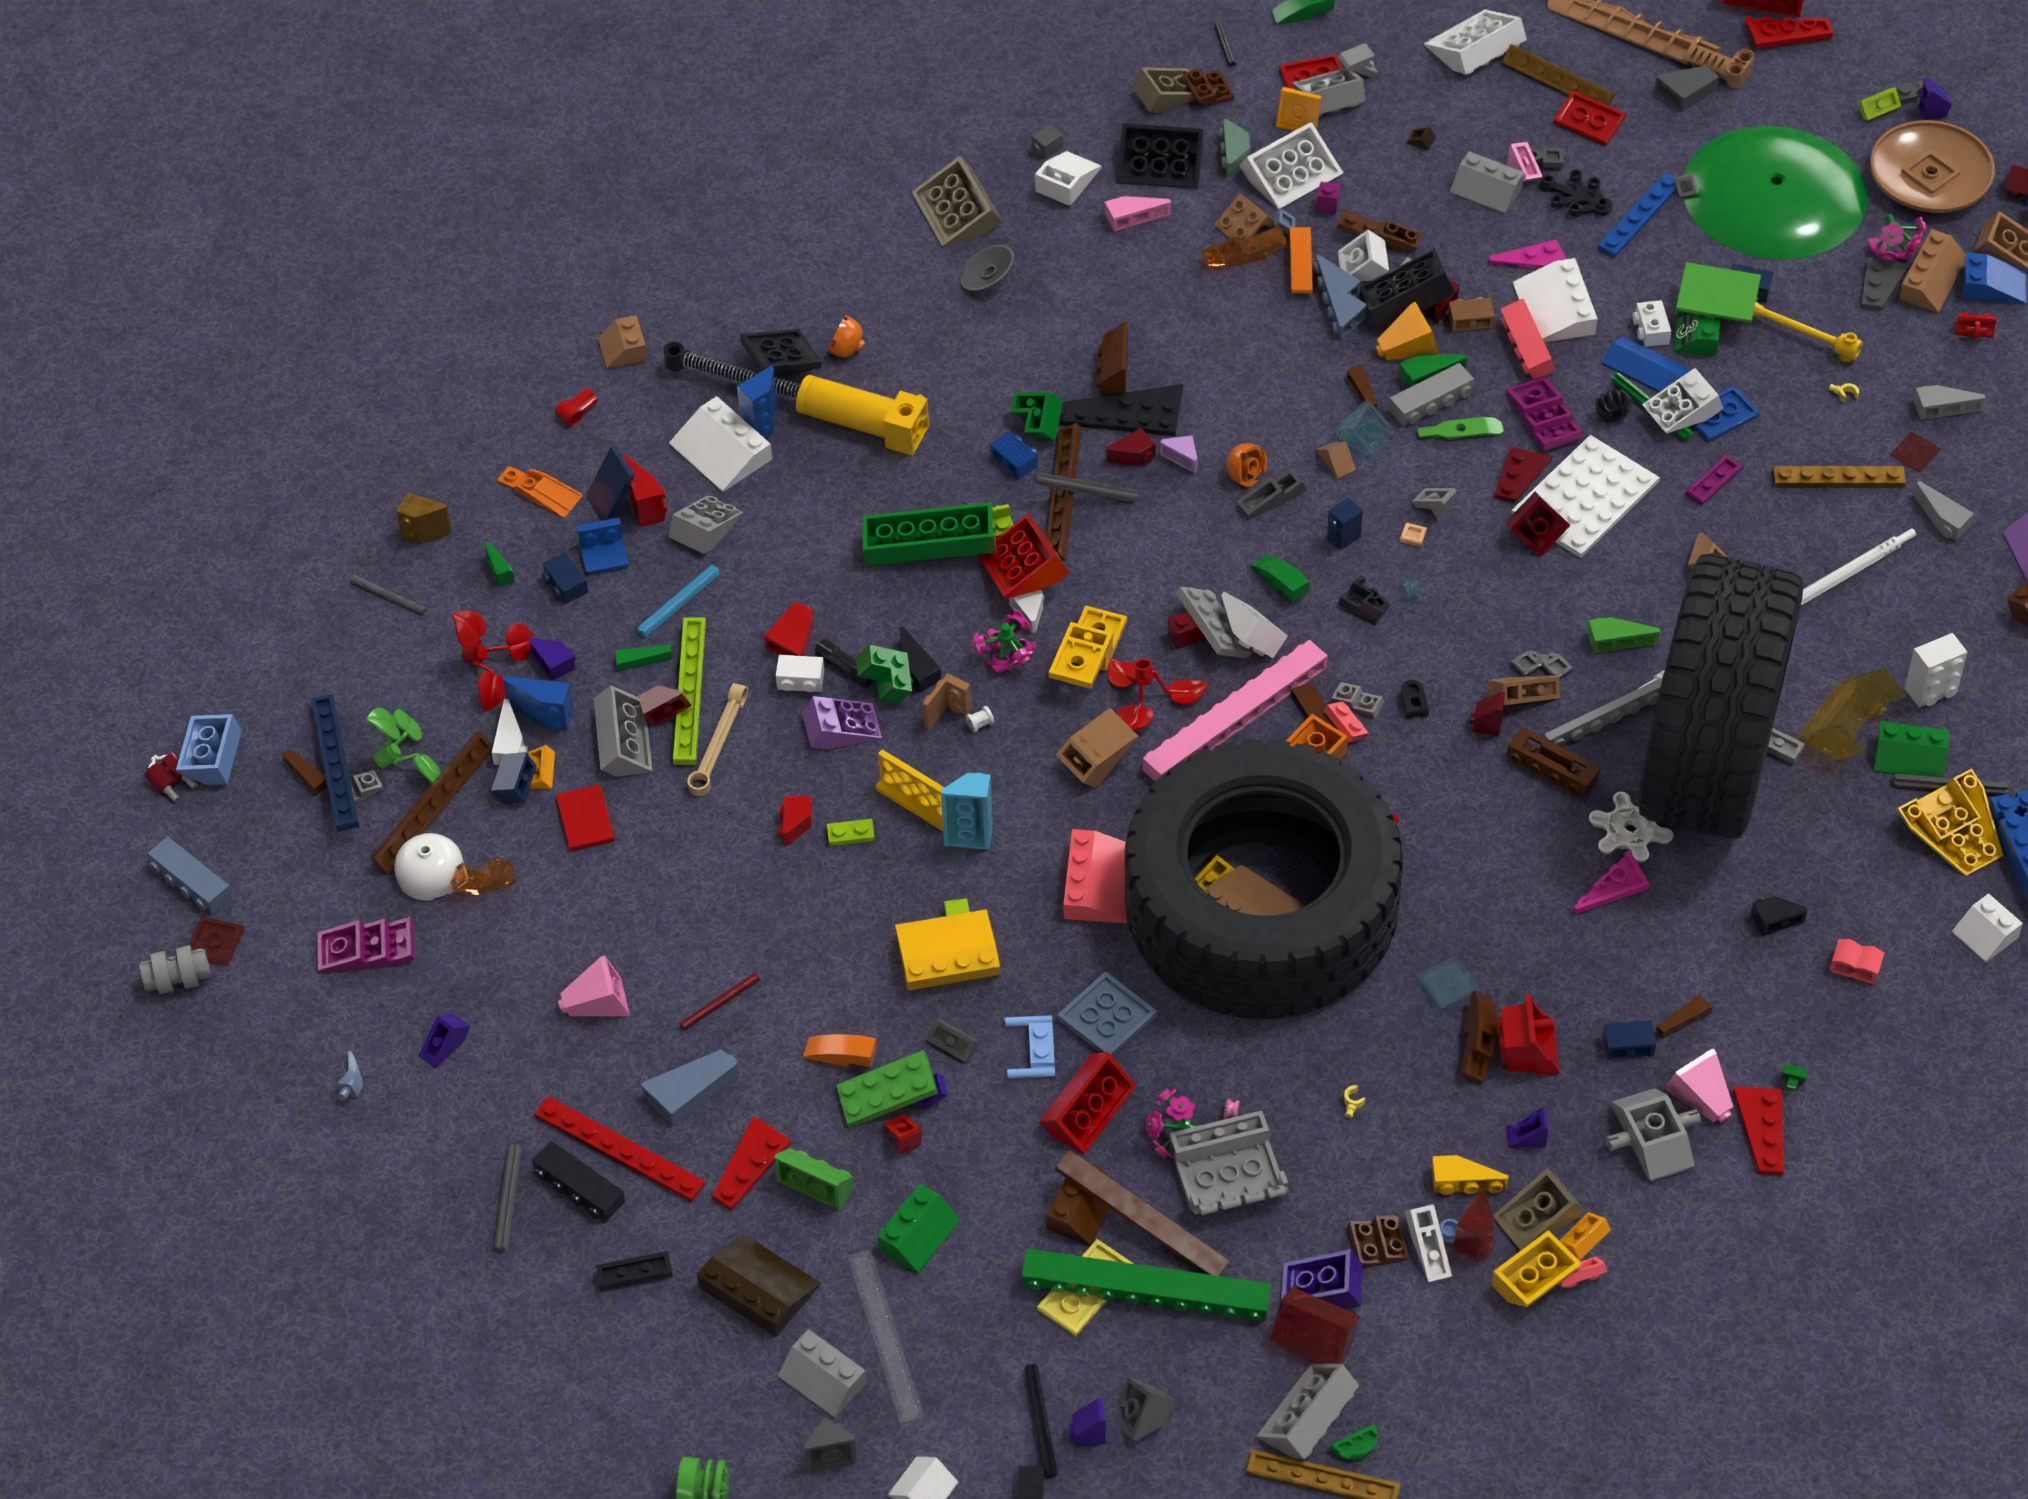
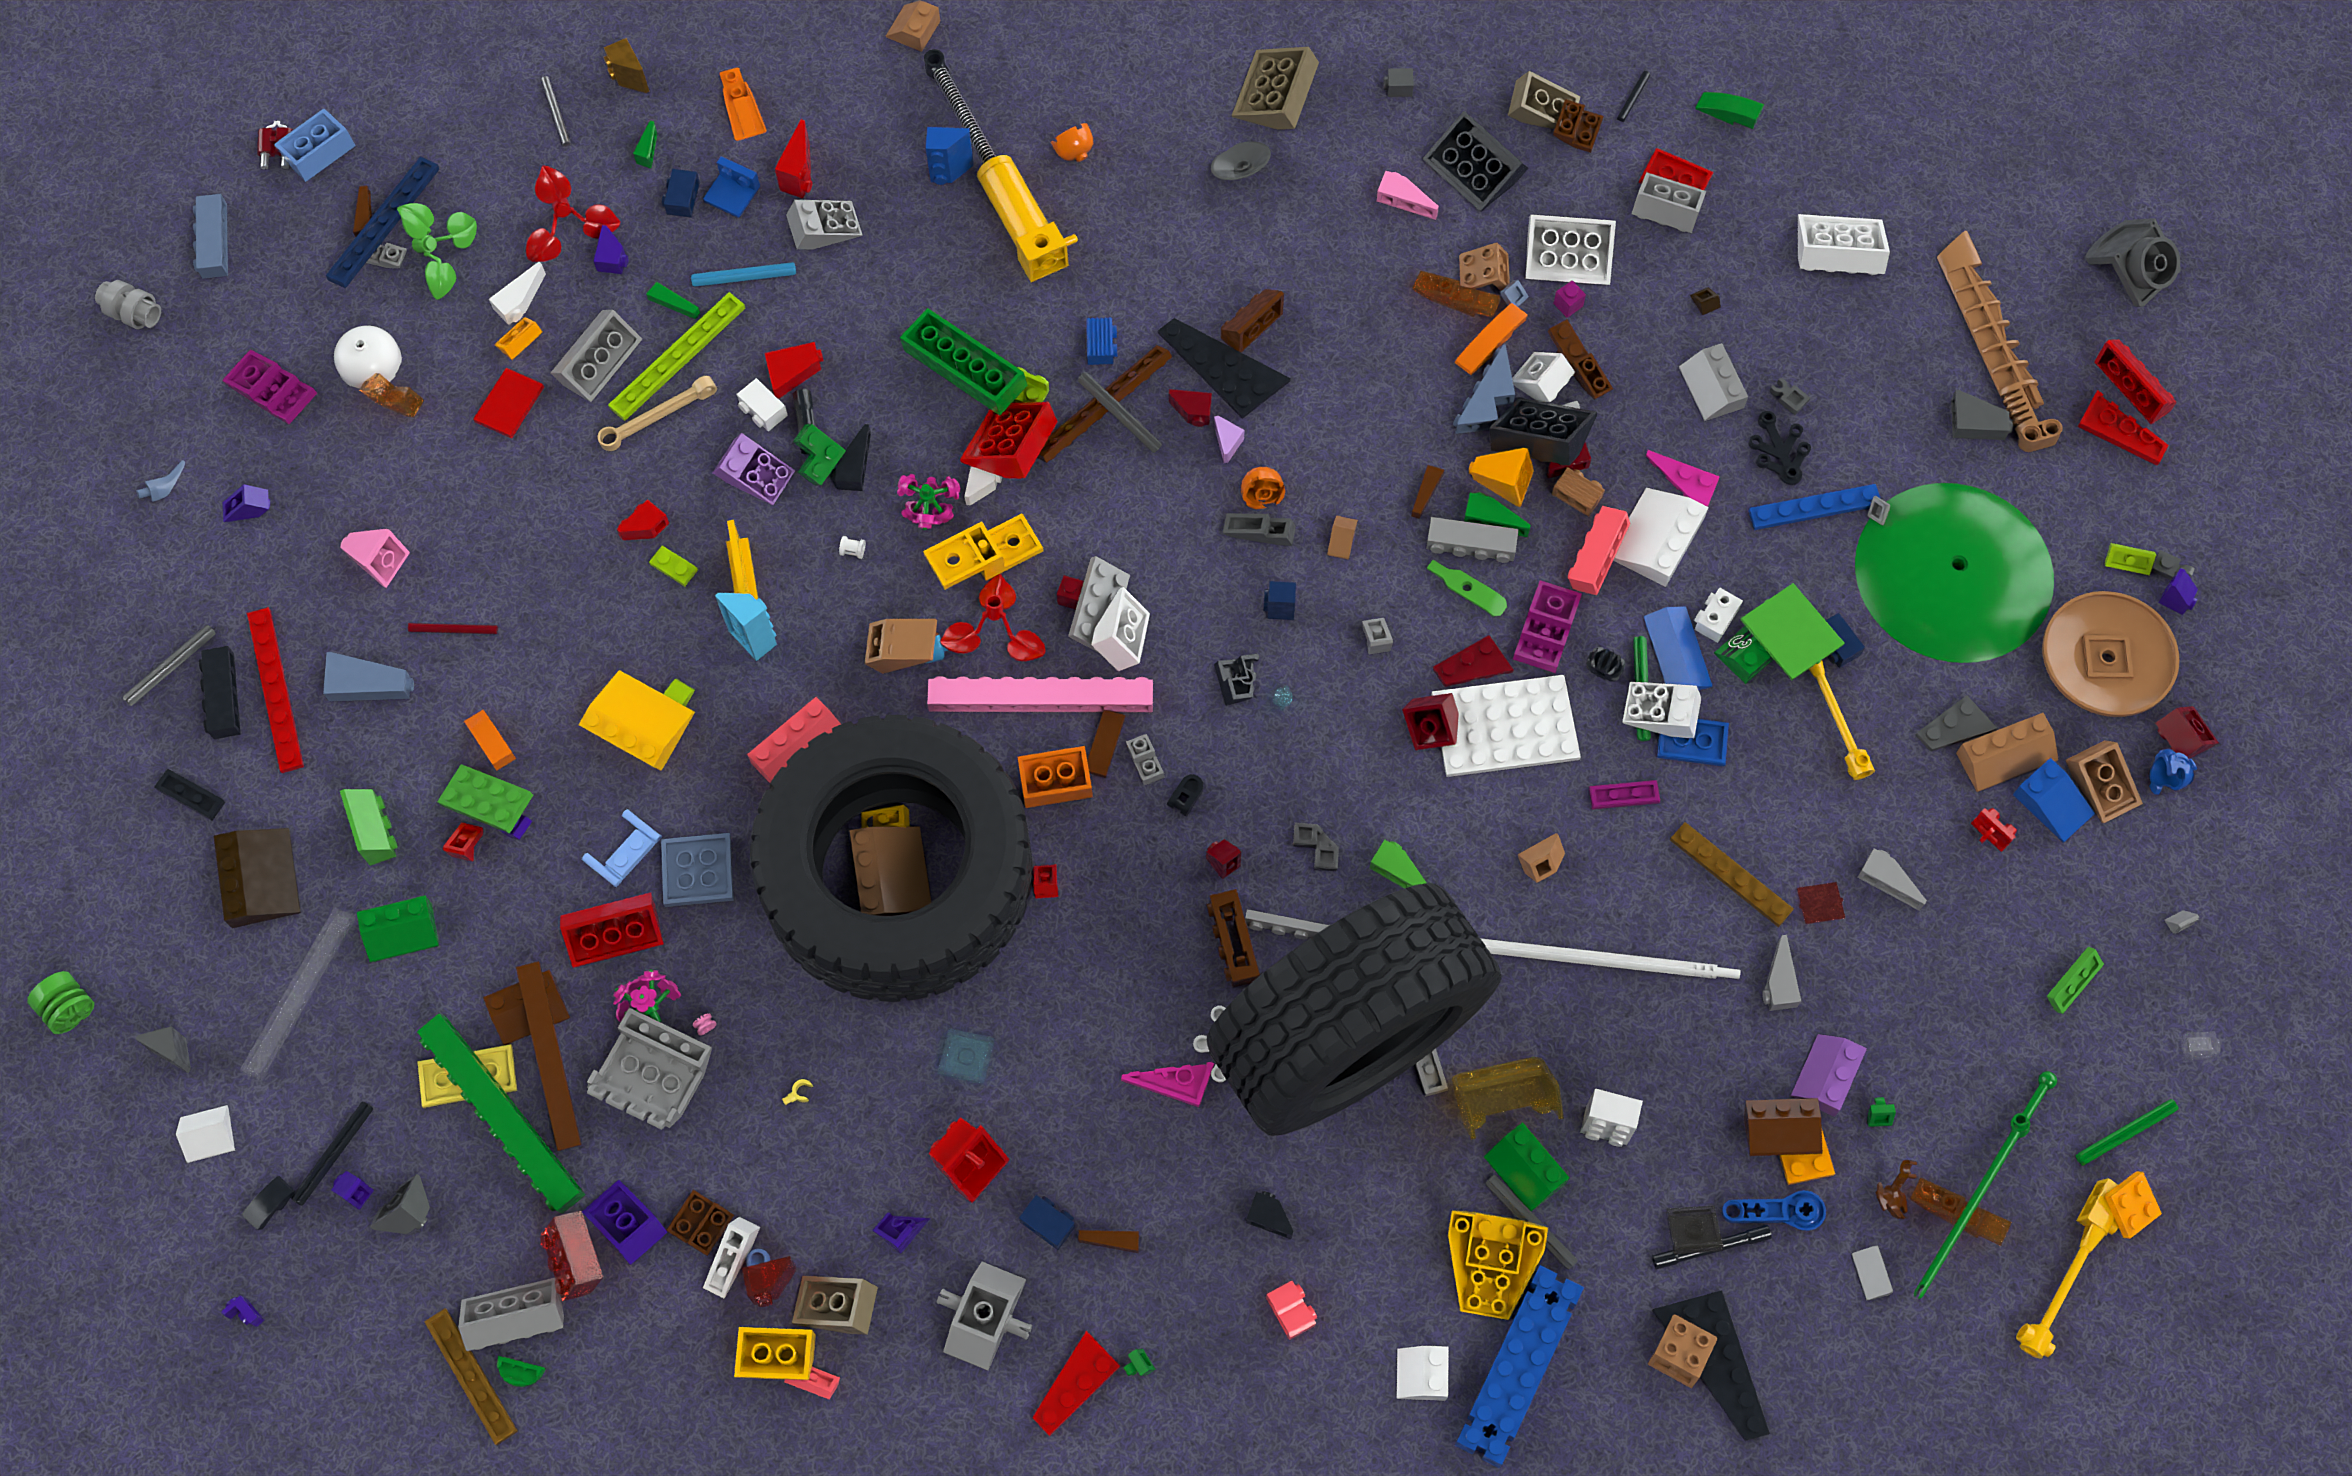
camera: 40 degrees right, 15 degrees up
(217, 938) = (182, 301): clear red tile -> none
(433, 800) = (421, 305): reddish brown plate -> none
(513, 777) = (487, 331): dark blue brick -> none
(541, 701) = (564, 289): blue slope -> none
(573, 411) = (823, 54): red piece -> none
(610, 484) = (778, 140): dark blue tile -> none
(662, 703) = (640, 352): slope -> none
(721, 445) = (897, 166): white slope -> none
(750, 1162) = (358, 771): red wing -> none
(782, 350) = (1013, 118): black plate -> none
(822, 1373) = (227, 985): light grey slope -> none
(947, 693) = (832, 509): medium nougat bracket -> none
(952, 1040) = (571, 797): dark grey plate -> none
(1041, 411) = (1149, 321): green brick -> none
(1065, 177) = (1384, 124): white slope -> none
(1235, 146) = (1541, 197): sand green slope -> none
(1282, 577) = (1192, 606): green slope -> none
(1297, 109) = (1622, 202): light orange plate -> none
(1346, 721) = (1115, 771): coral plate -> none
(1359, 60) = (1718, 192): light grey slope -> none
(1364, 430) = (1386, 530): clear light blue slope -> none
(1413, 534) = (1334, 650): light nougat tile -> none
(1461, 1175) = (806, 1219): yellow slope -> none
(1482, 1034) = (934, 1125): reddish brown slope -> none
(1522, 159) = (1762, 386): bright pink slope -> none
(1525, 688) = (1274, 856): medium nougat slope -> none
(1555, 75) = (1875, 329): pearl gold plate -> none
(1585, 1234) = (850, 1352): light orange slope -> none
(1589, 118) = (1863, 386): red tile -> none
(1703, 1087) = (1056, 1314): bright pink slope -> none
(1844, 388) = (1815, 797): light yellow piece -> none
(1893, 234) = (1993, 693): dark pink plant -> none

